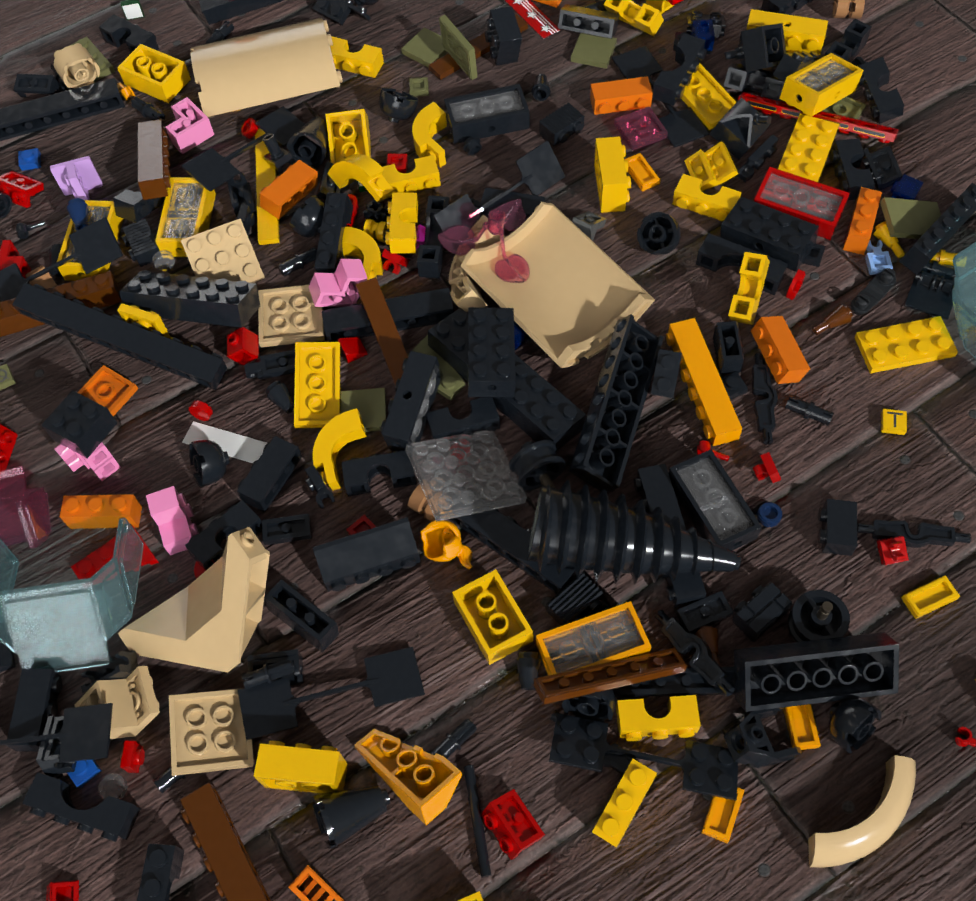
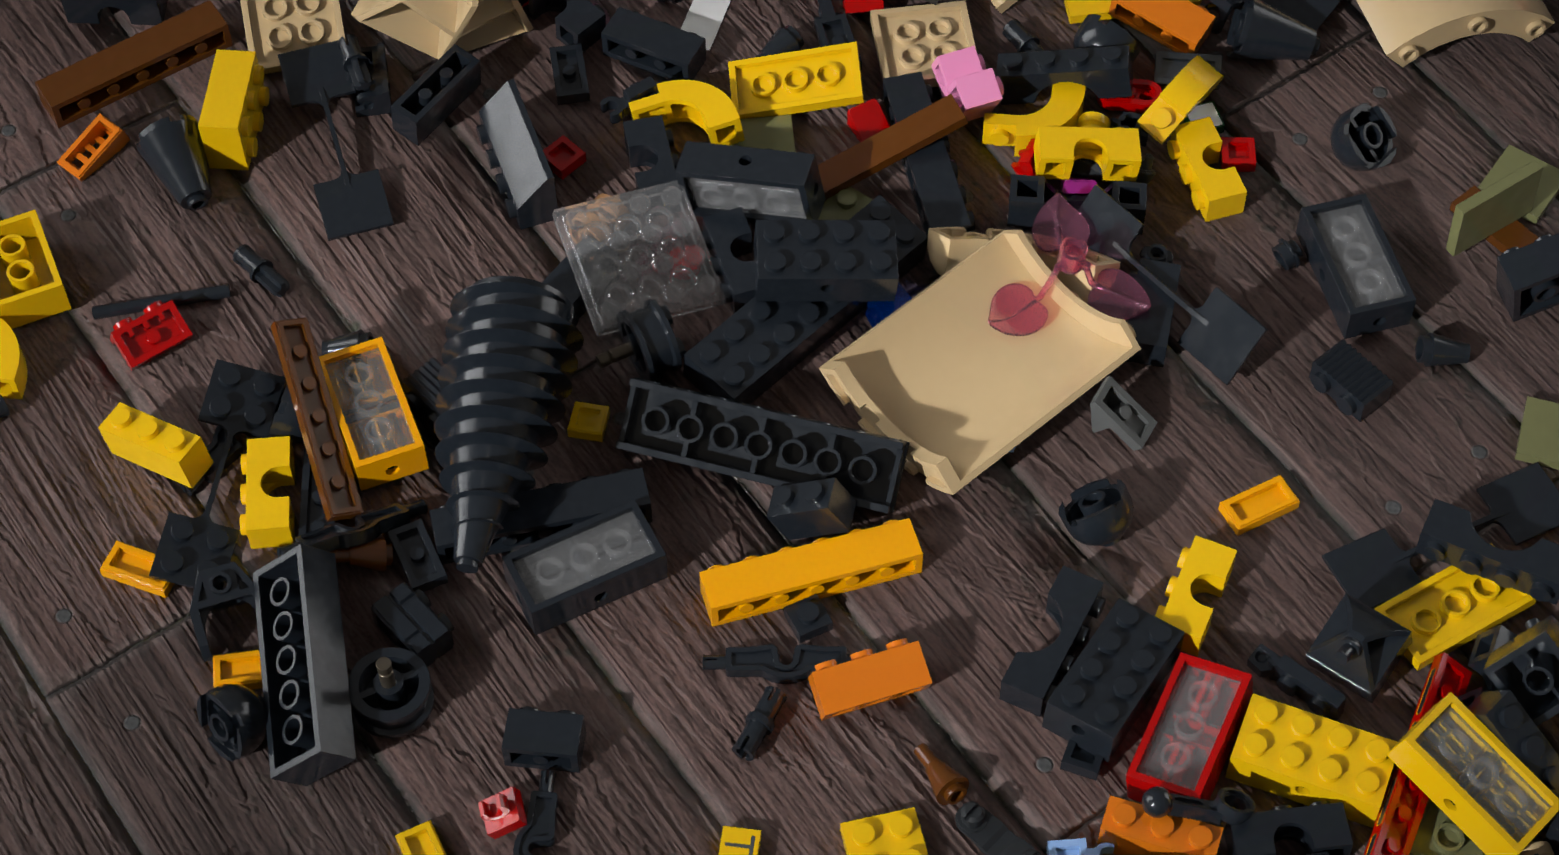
camera: 85 degrees right, 5 degrees down
(348, 134) = (1278, 86): yellow slope -> none
(364, 62) = (1470, 96): yellow arch -> none
(417, 777) = (220, 222): light orange wedge -> none
(419, 86) = (1424, 177): olive tile -> none
(425, 126) = (1302, 183): yellow arch -> none
(443, 543) = (533, 246): light orange hair -> none
(493, 616) = (415, 298): yellow brick -> none
(611, 174) = (1225, 441): yellow brick -> none
(621, 95) = (1430, 464): orange brick -> none
(640, 128) = (1357, 501): clear pink plate -> none
(705, 446) = (688, 572): red hand -> none
(712, 167) = (1273, 608): yellow slope -> none
(728, 347) = (869, 602): black brick -> none
(753, 275) = (953, 633): yellow arch -> none
(767, 469) = (649, 652): red tile -> none
(769, 514) = (575, 655): dark blue tile -> none
(796, 284) = (1013, 722): red tile -> none
(851, 180) = (1230, 806): none -> black piece
(860, 840) = (114, 760): tan brick -> none

